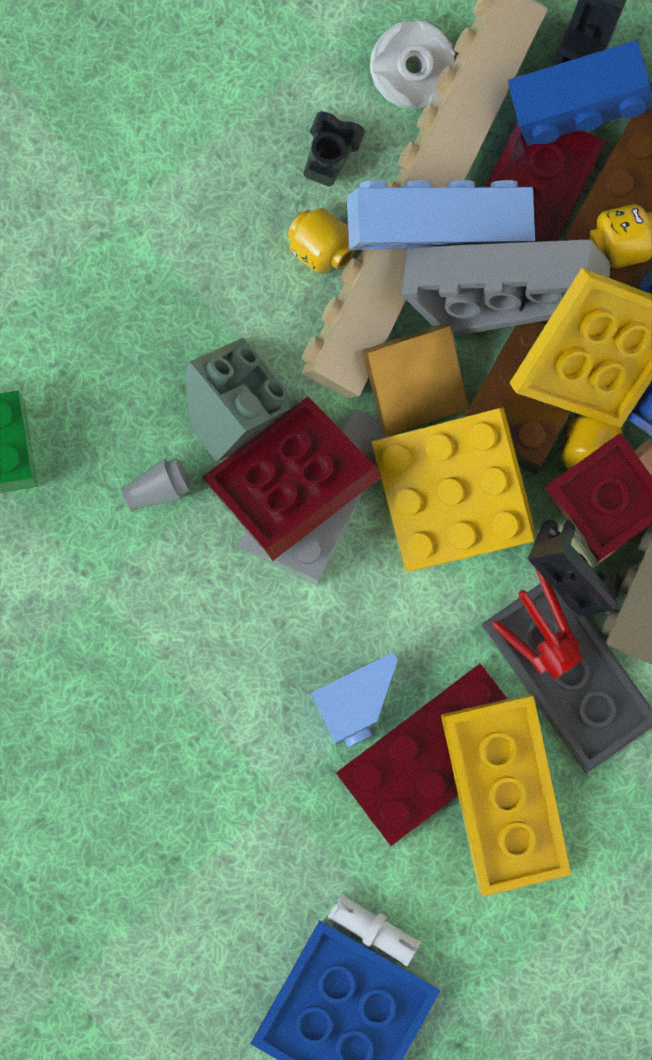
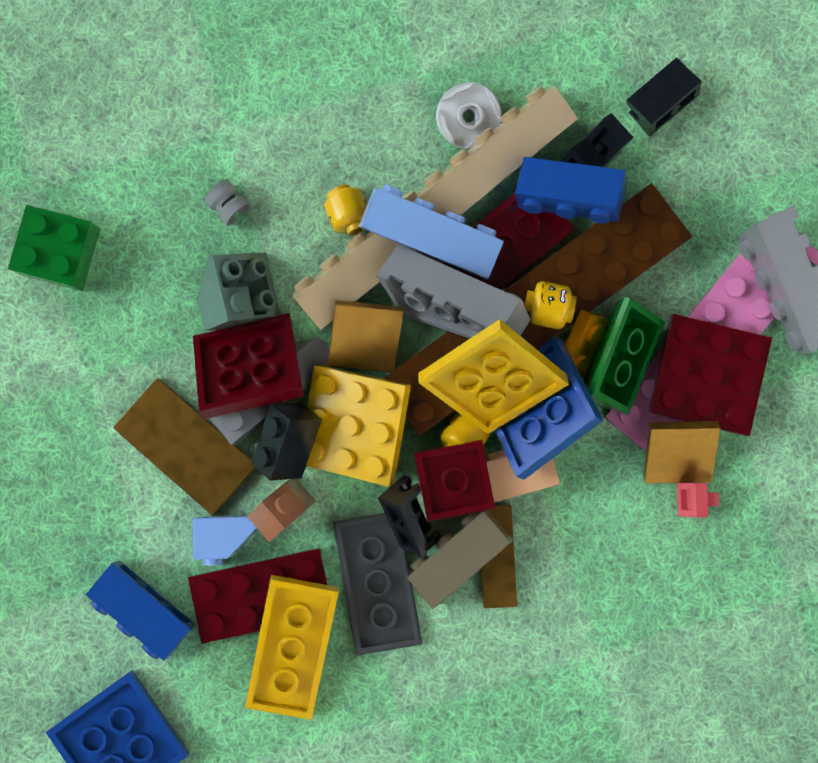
camera: 30 degrees right, 5 degrees up
(158, 485) = (161, 328): light grey cone -> none
(169, 296) = (226, 201): none -> light grey wheel
(256, 616) = (185, 446): none -> pearl gold tile
(296, 840) = (139, 610): none -> blue brick
(331, 141) = (389, 144): black plate -> none
(374, 930) = (164, 694): white pin -> none
(382, 546) = (286, 441): none -> black brick
(413, 634) = (281, 508): none -> nougat slope
(558, 651) = (370, 567): red plant -> none

